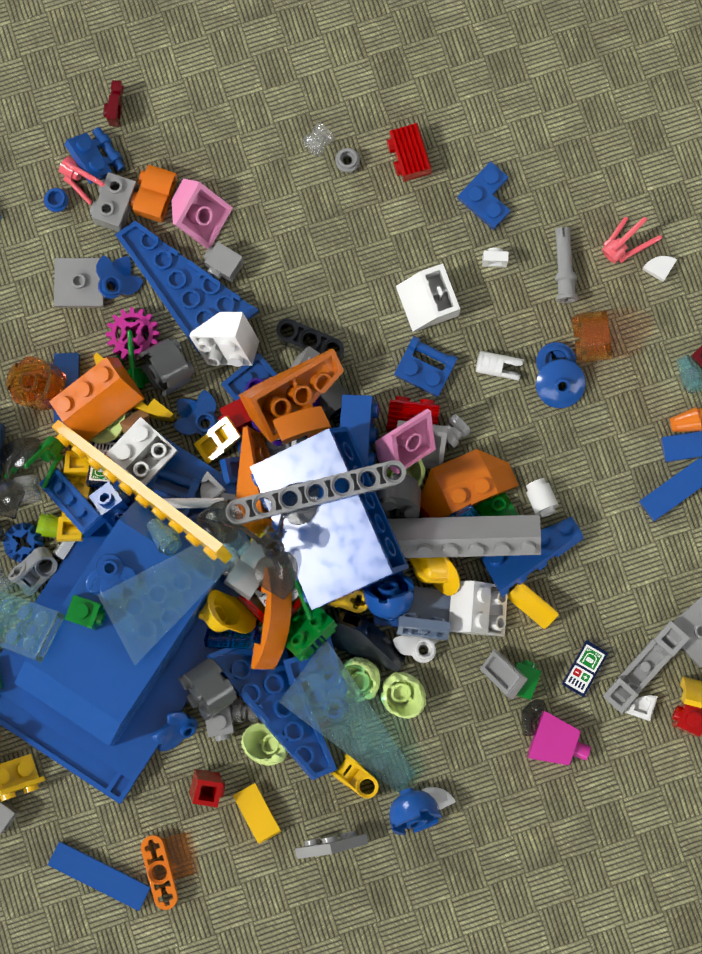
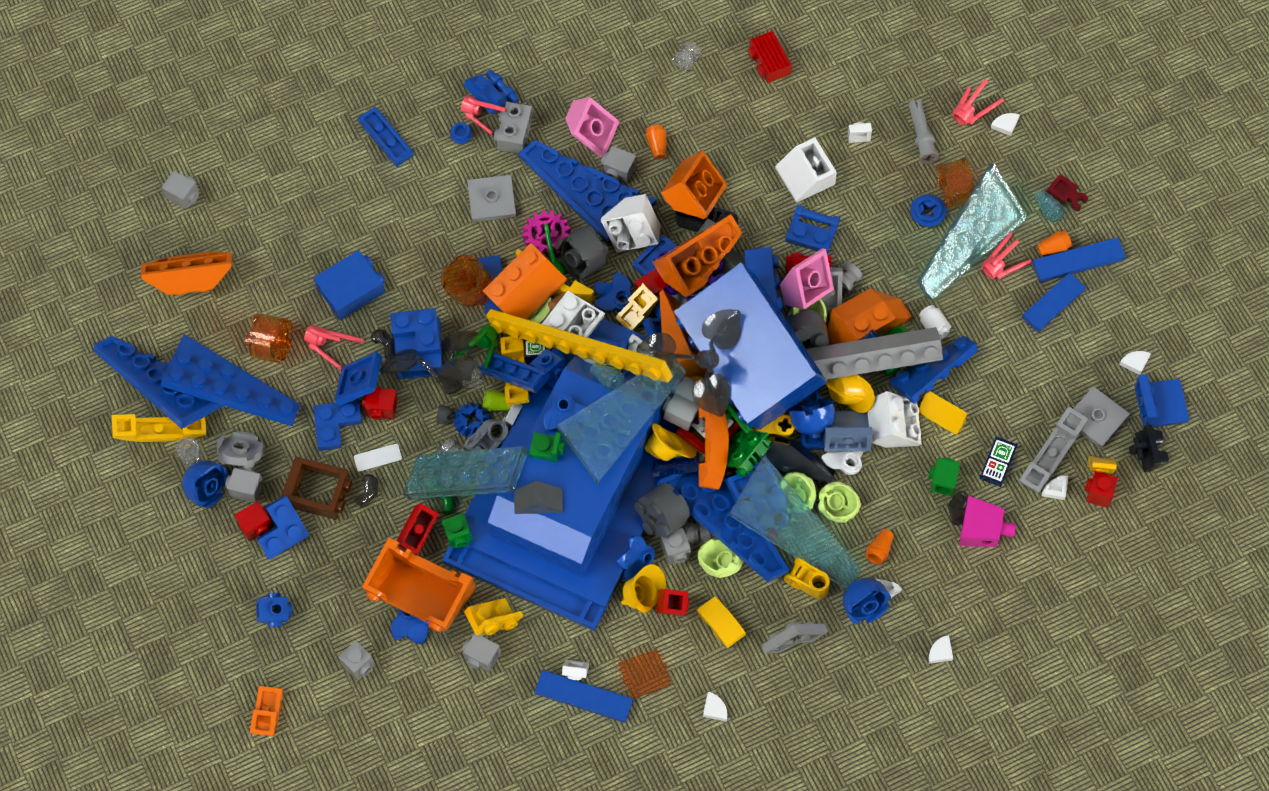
camera: 10 degrees left, 15 degrees down
(68, 674) = (538, 498): none -> dark grey slope
(93, 846) = (575, 669): none -> white plate
(113, 108) = (501, 52): dark red plate -> none
(118, 275) = (525, 187): blue plate -> none
(154, 193) = (548, 117): orange brick -> none
(171, 889) = (638, 665): orange beam -> none
(176, 769) = (643, 588): none -> yellow piece
(236, 908) = (715, 708): none -> white tile
(269, 238) = (657, 140): none -> orange cone
(301, 304) = (694, 186): none -> orange slope
(301, 423) = (708, 274): orange slope -> none
(327, 485) = (745, 303): light grey beam -> none
(347, 153) = (715, 65): light grey plate -> none
(440, 751) = (879, 548): none -> orange cone
(480, 197) = (838, 87): blue plate -> none
(486, 877) = (941, 651): none -> white tile
(492, 364) = (872, 219): white hinge -> none
(503, 674) = (926, 470): light grey tile -> none
(554, 373) = (924, 222): blue dish -> none
(613, 388) = (980, 225): none -> clear light blue wing
(618, 439) = (994, 264): none -> coral plant

